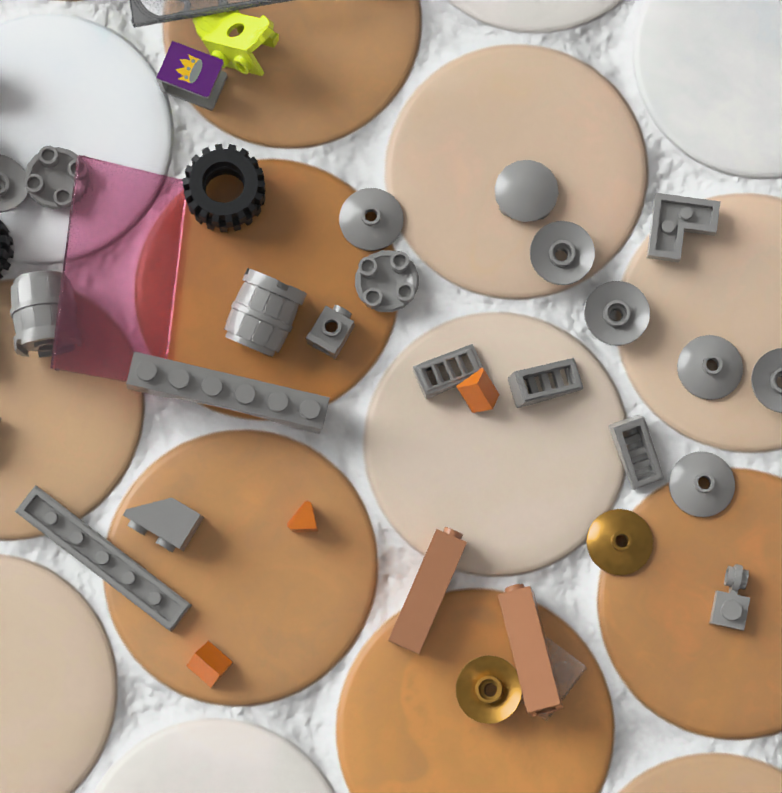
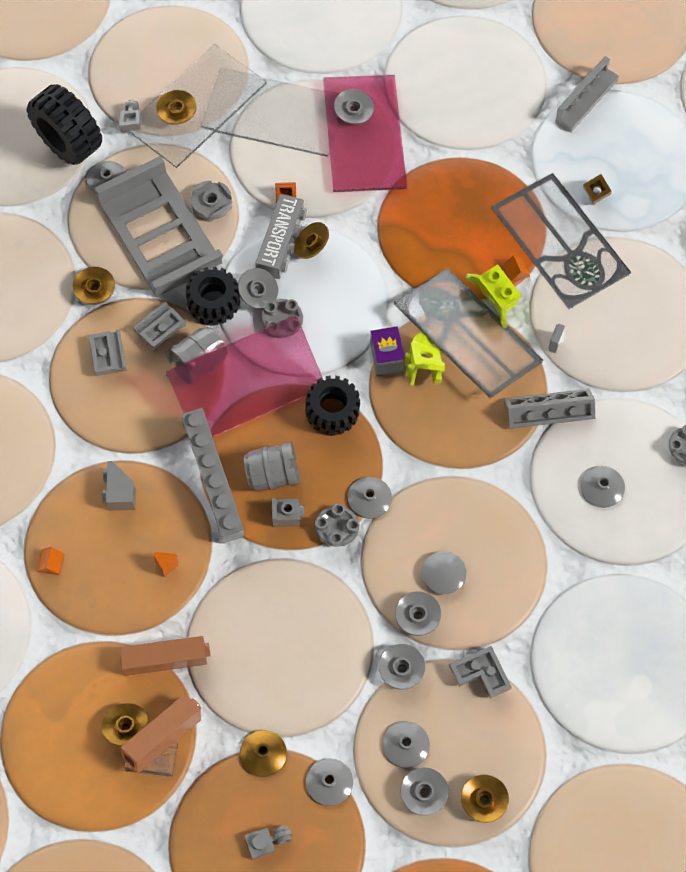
camera: 55 degrees right, 15 degrees down
(103, 558) = (78, 470): light grey tile -> none
(433, 364) = (300, 598): light grey slope -> none
(478, 392) = (303, 615): orange slope -> none
(519, 389) = (328, 657): light grey slope -> none
(647, 447) = (318, 724): light grey slope -> none

